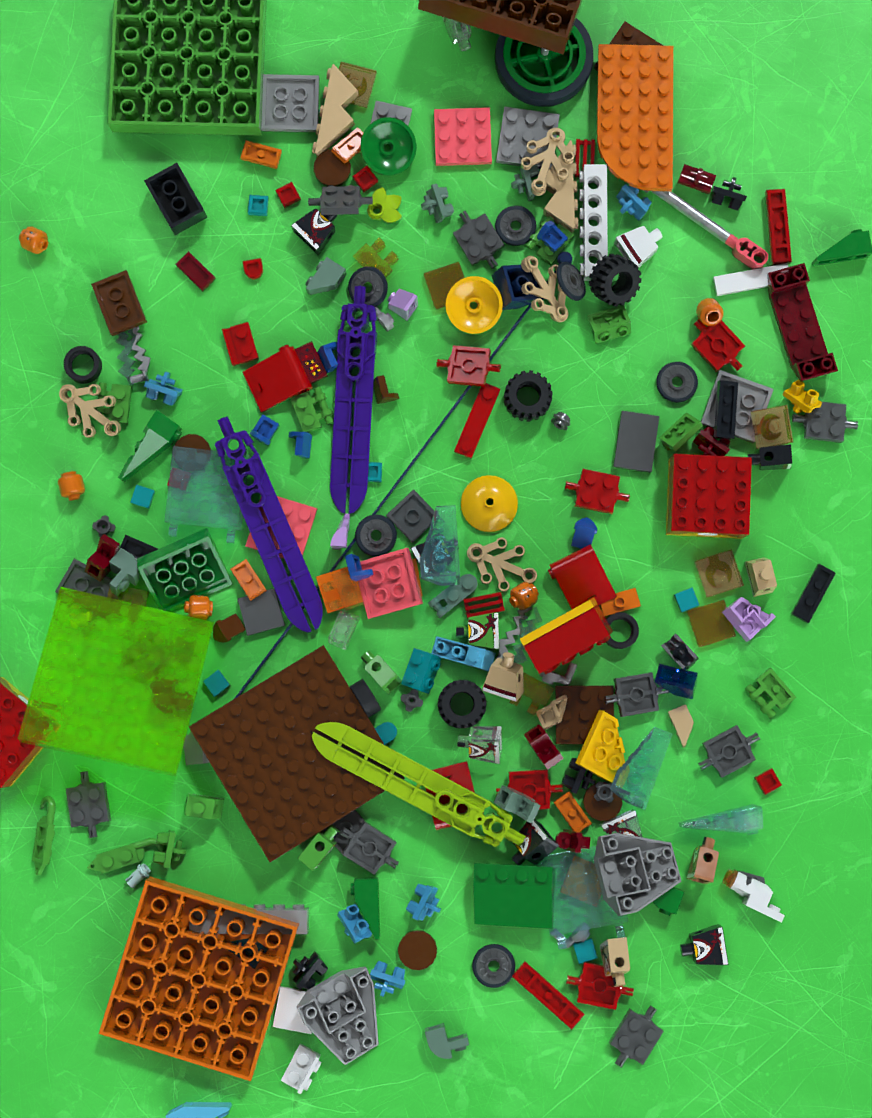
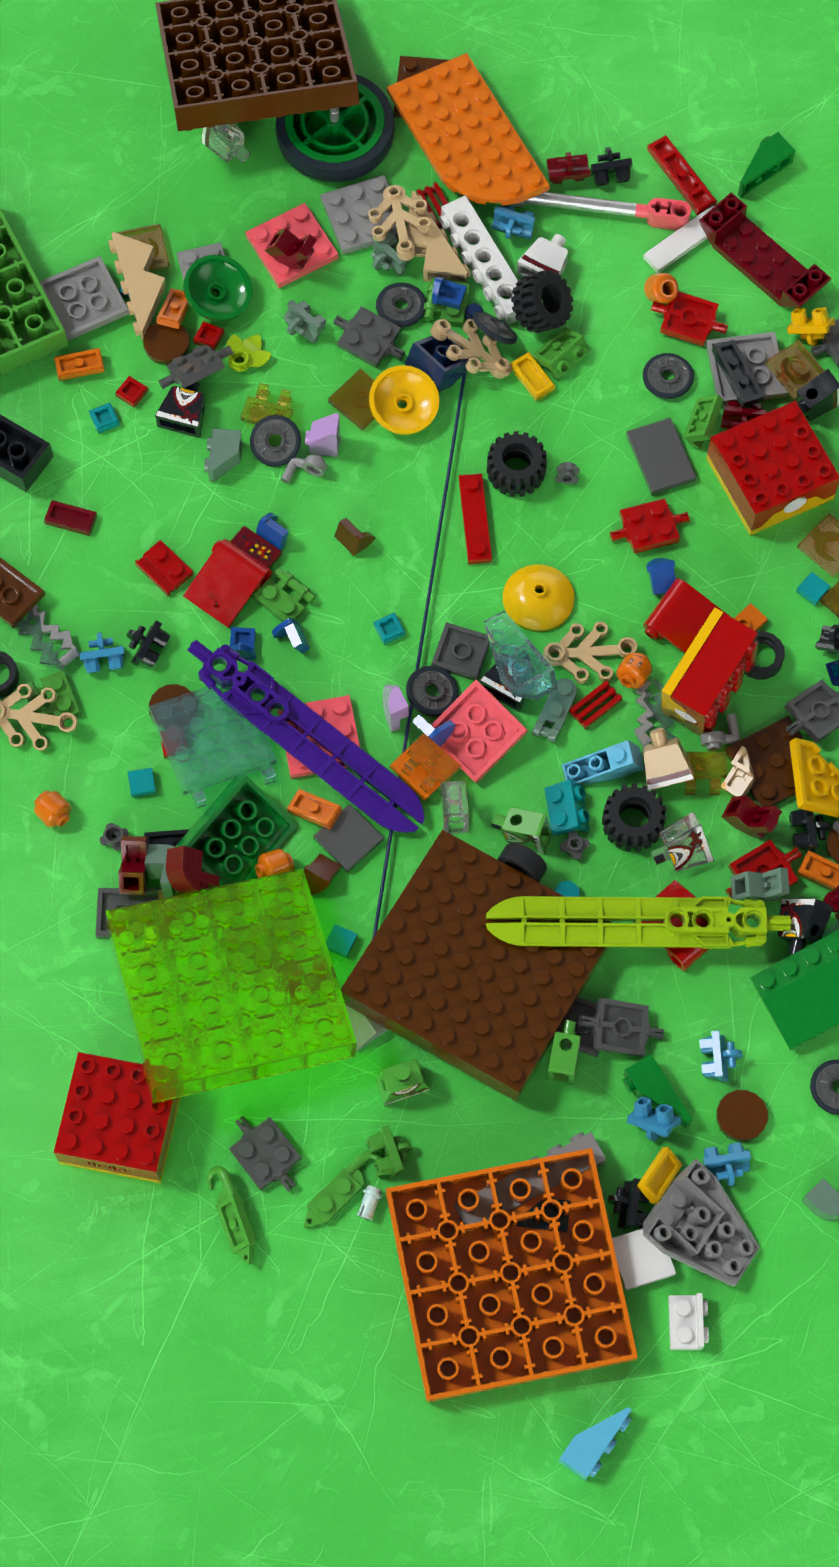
camera: 30 degrees left, 15 degrees down
(129, 586) = (185, 872): none -> dark red brick
(159, 435) = (128, 701): green wedge -> none
(206, 392) = (144, 653): none -> black hips
(253, 268) = (134, 484): red tile -> none
(337, 963) = (659, 1175): none -> yellow tile
(363, 401) = (306, 495): dark purple piece -> none
(455, 142) = (291, 250): none -> dark red brick
(468, 365) = (433, 465): plate -> none
(481, 631) = (609, 728): torso -> none
(579, 331) = (532, 376): none -> yellow tile

